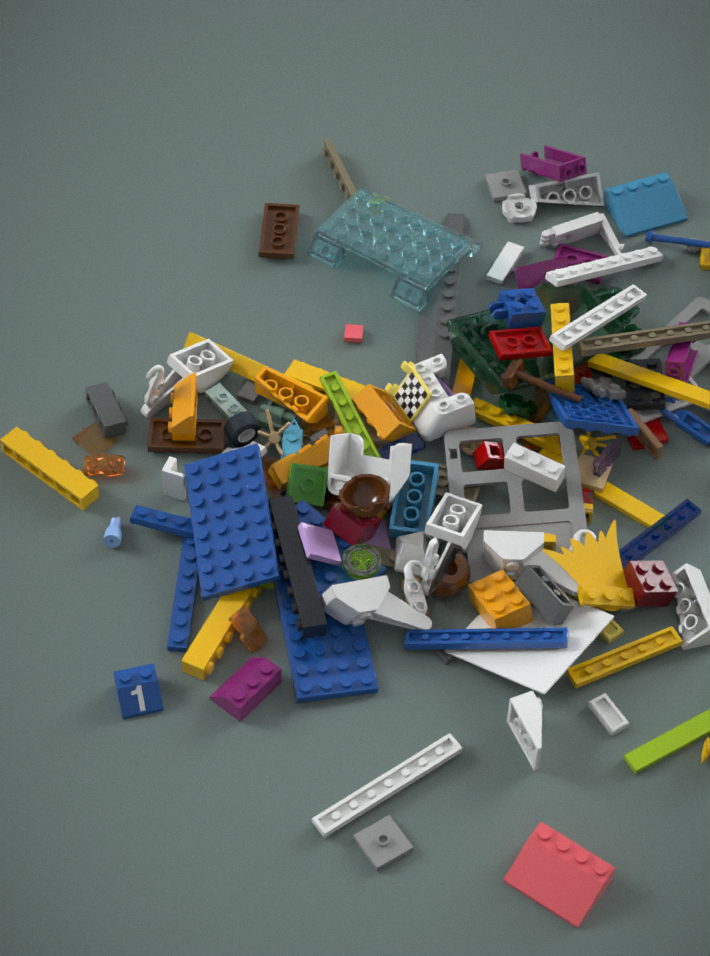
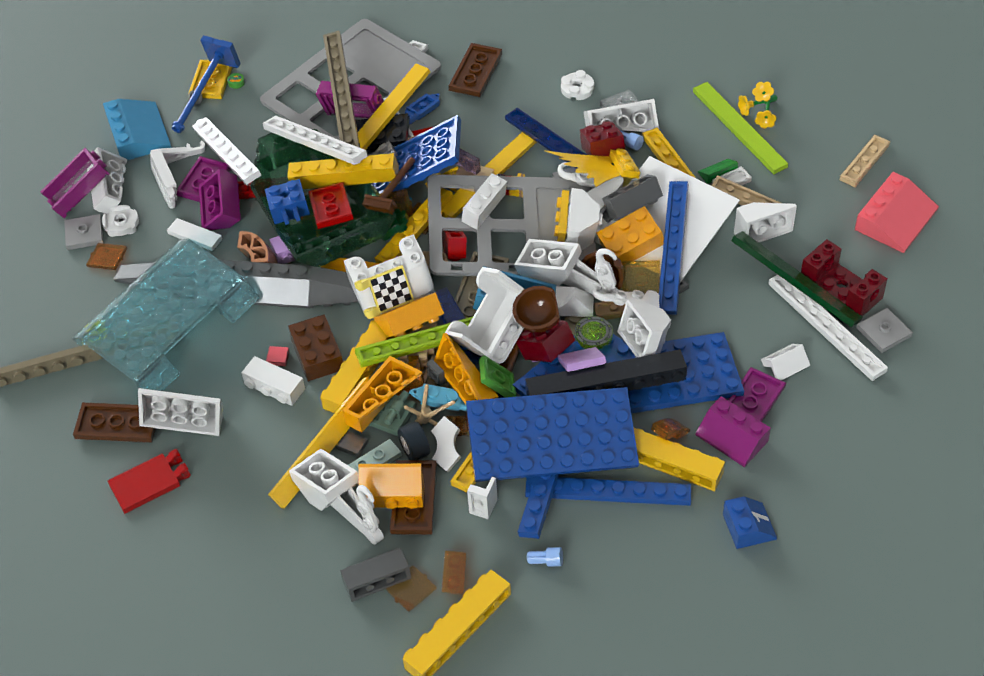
camera: 85 degrees left, 0 degrees up
(217, 258) = (148, 480): none -> red tile
(278, 261) = (180, 412): none -> white slope
(300, 719) = (759, 393): none -> magenta tile
(320, 329) = (273, 381): none -> white brick
(338, 742) = (787, 361): none -> white panel
(359, 355) = (315, 347): none -> reddish brown brick
(447, 756) = (797, 279): none -> dark green tile
(452, 614) = (641, 276): none -> clear yellow tile
(465, 790) = (824, 269): none -> dark red plate
(475, 204) = (106, 256): none -> clear orange piece
(476, 301) = (255, 248): none -> nougat brick
(577, 723) = (740, 192): none -> tan tile
(623, 700) = (717, 169): none -> green slope
(651, 856) = (864, 161): none -> tan tile
(661, 617) = (633, 140): none -> light blue piece

